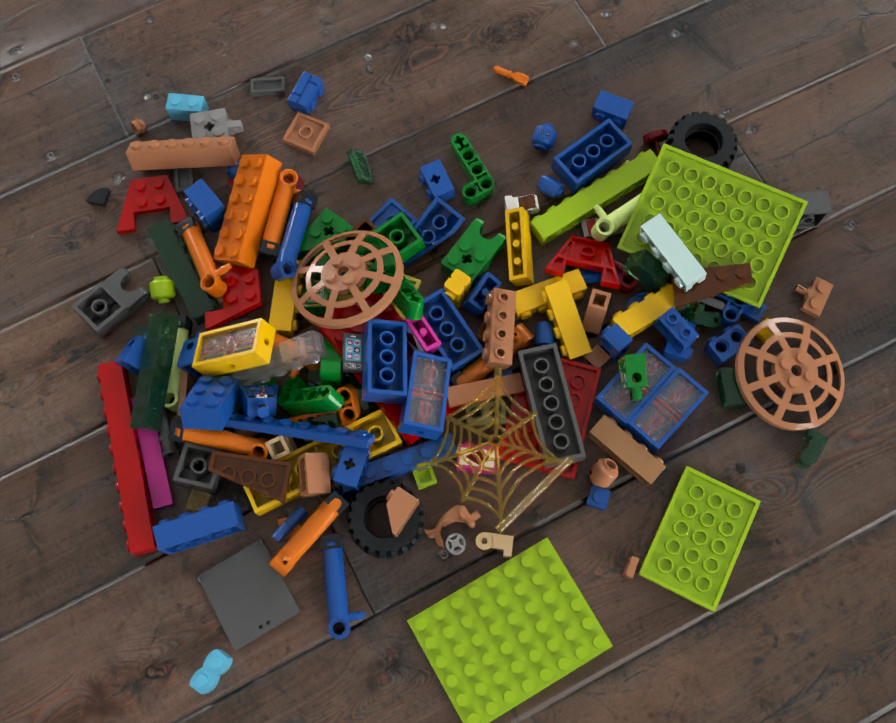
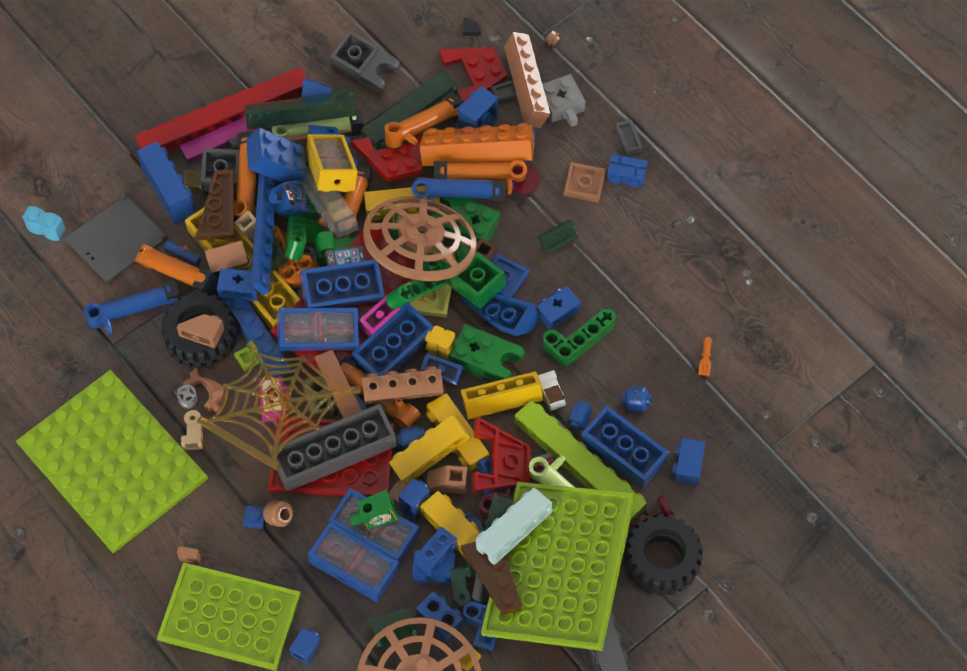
camera: 75 degrees right, 10 degrees down
(162, 289) = (386, 99): lime head -> none
(181, 105) = (582, 71): medium azure brick -> none
(626, 450) = (304, 533): medium nougat brick -> none
(740, 469) = (305, 646): none -> blue brick

